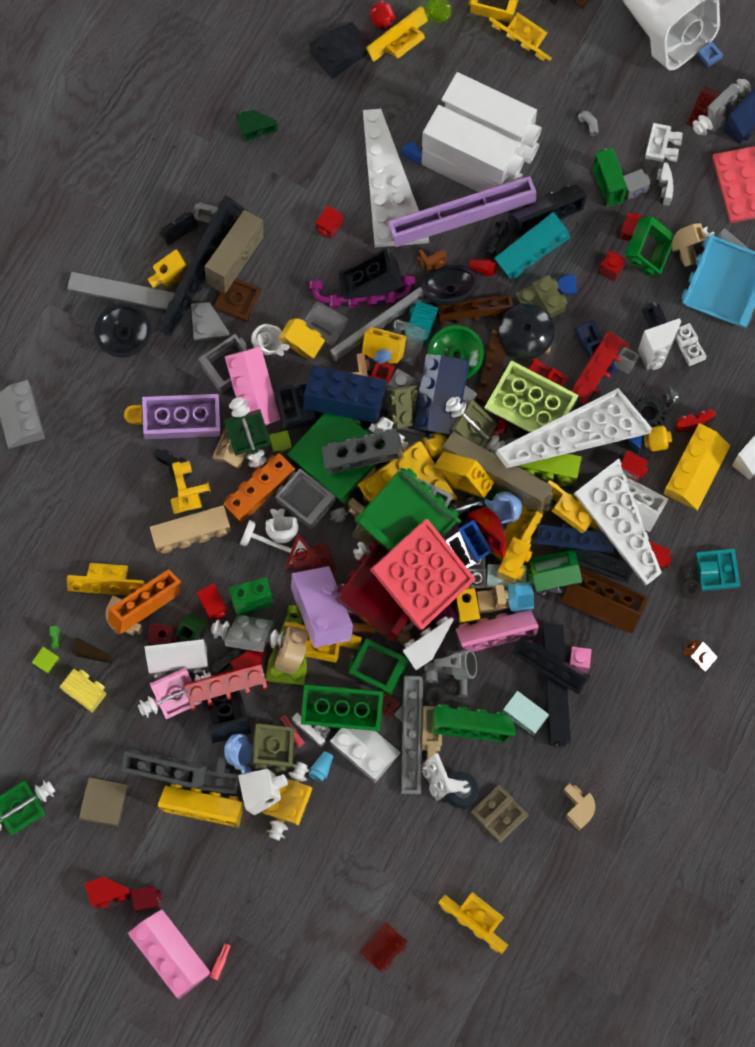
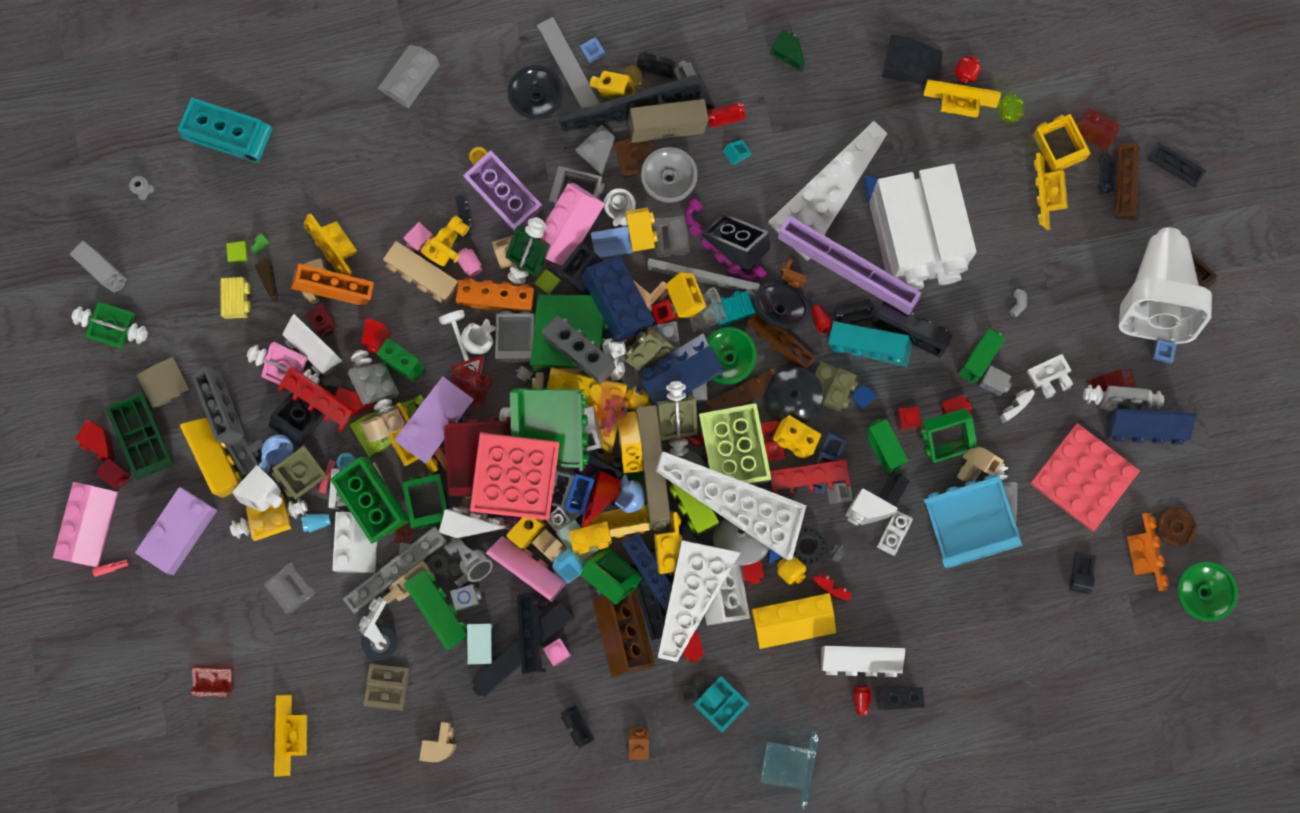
camera: 55 degrees right, 5 degrees up
(115, 851) = (131, 421): none -> dark green brick
(125, 264) = (592, 50): none -> medium blue plate
(161, 509) = (417, 237): none -> bright pink brick
(170, 247) = (634, 73): none -> clear yellow tile
(191, 627) = (343, 337): dark green brick -> none
(217, 486) = (469, 262): none -> bright pink brick
(237, 882) = (176, 531): none -> lavender brick
(265, 206) = (726, 114): none -> red hinge
(276, 274) = (671, 163): none -> light grey dish
(291, 369) = (611, 242): none -> light blue panel
(292, 706) = (344, 460): none -> medium azure tile
(299, 225) = (736, 151): none -> teal slope
(329, 222) = (756, 172): red brick -> none
(357, 836) = (284, 592): none -> clear plate
(382, 356) = (672, 302): medium blue plate -> none
(436, 476) = (607, 423): none -> clear pink plate
(479, 695) = (466, 597): none -> light grey brick
(560, 353) = (796, 437): none -> yellow brick
(596, 460) = (728, 537): none -> light grey dish
(620, 296) = (886, 446): none -> green window
(649, 688) = (581, 733): none -> black hinge

